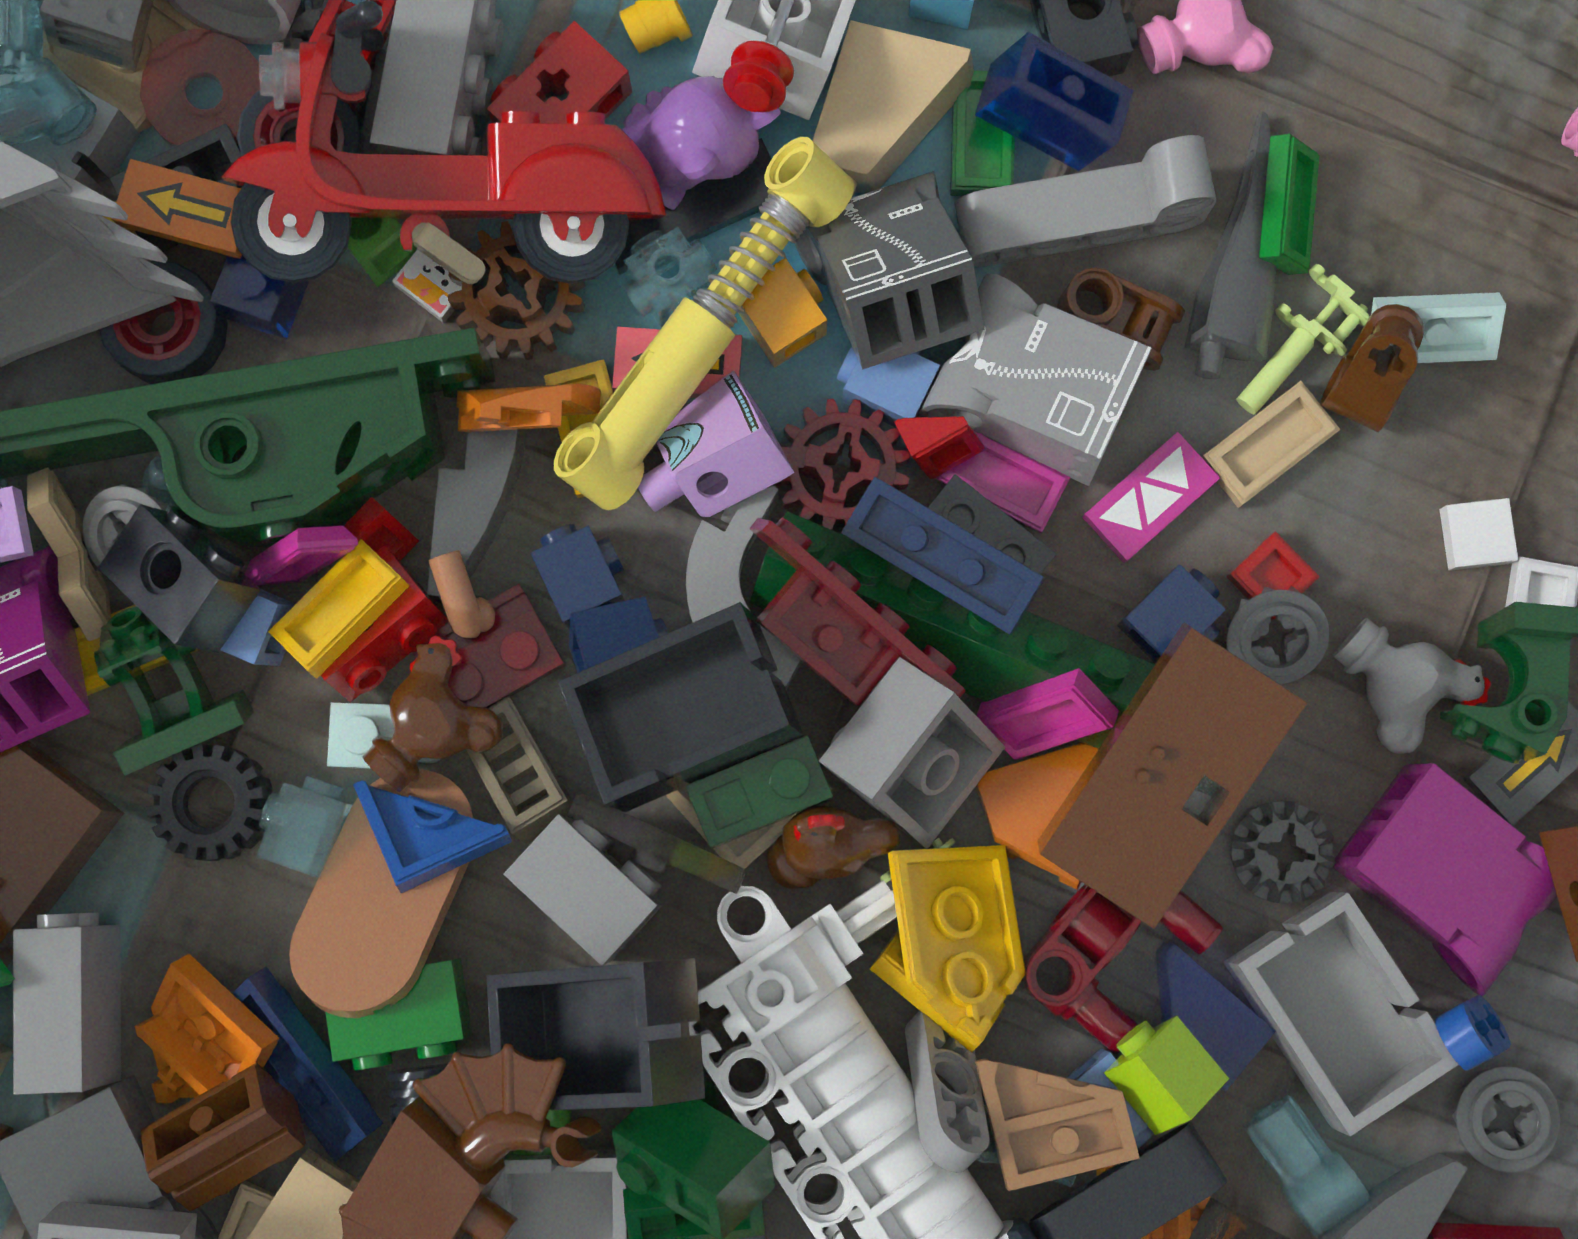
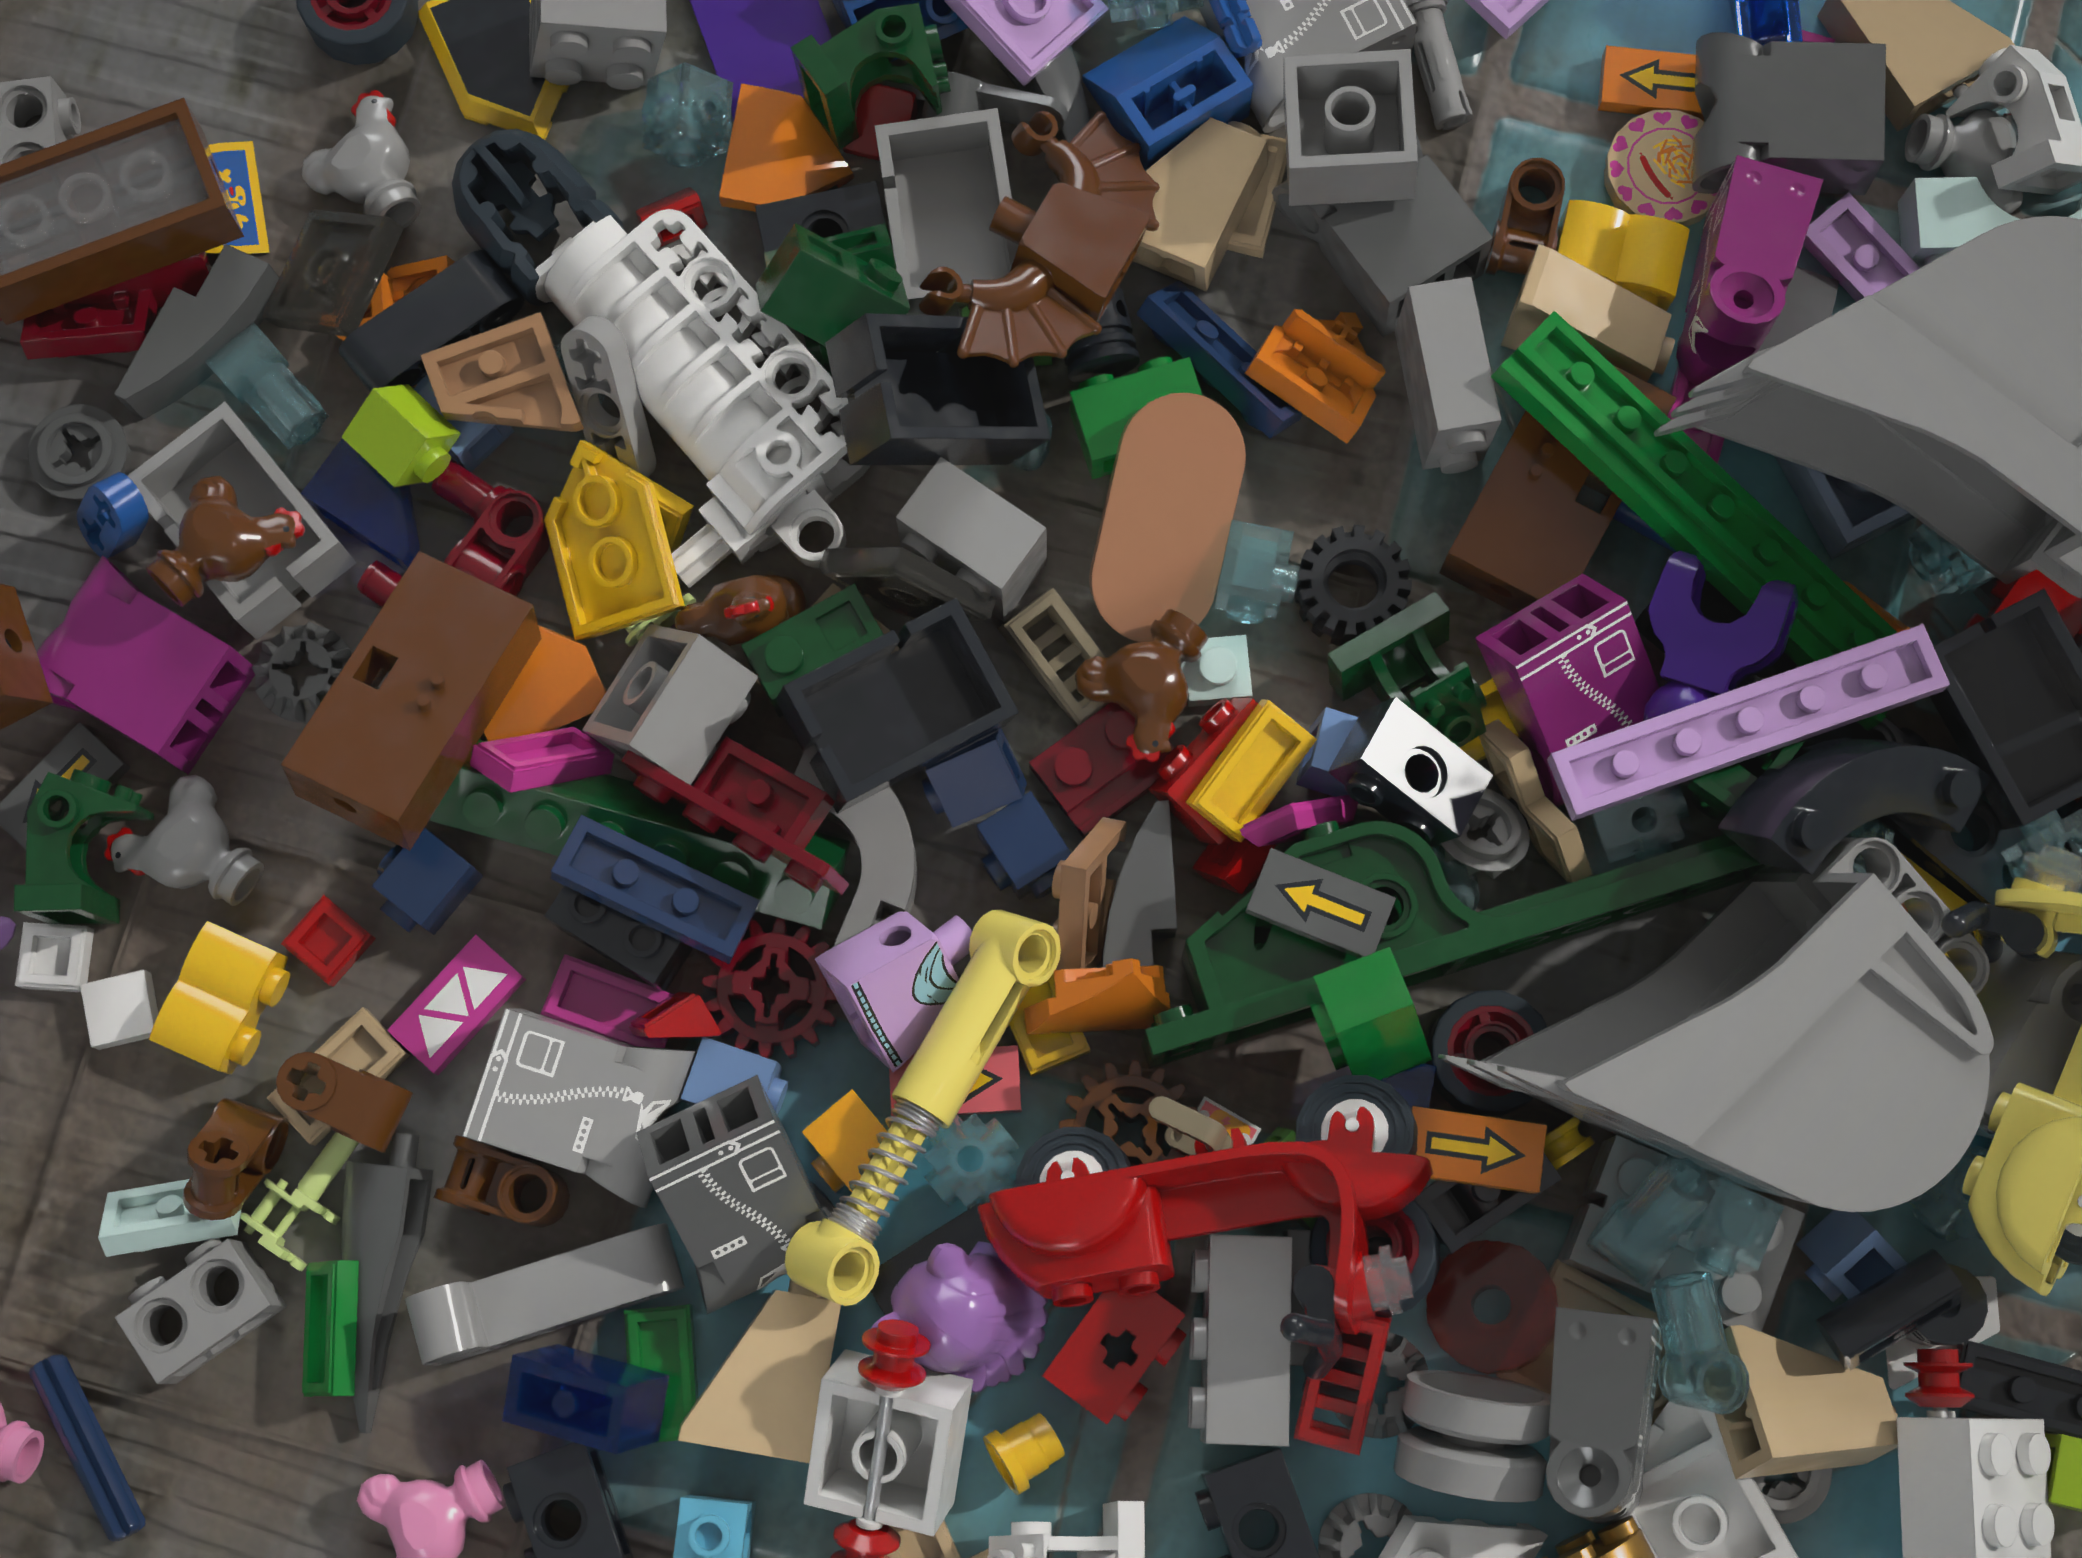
camera: 175 degrees right, 5 degrees down
(222, 1137) = (1279, 277): reddish brown brick -> none
(258, 332) = (1369, 1017): none -> green brick
(287, 445) = (1320, 905): none -> dark grey tile
(424, 837) = (1138, 570): blue tile -> none
(464, 611) = (1130, 792): nougat arm -> none
(525, 513) = (1086, 896): none -> medium nougat wing
(1258, 403) = (351, 1102): none -> reddish brown piece
(1301, 647) = (294, 870): dark grey gear -> none
(1360, 972) = (220, 541): none -> reddish brown animal
(1380, 527) = (220, 999): none -> yellow brick
(1406, 229) = (207, 1324): none -> light grey brick
(1521, 132) = (87, 1447): none -> dark blue axle

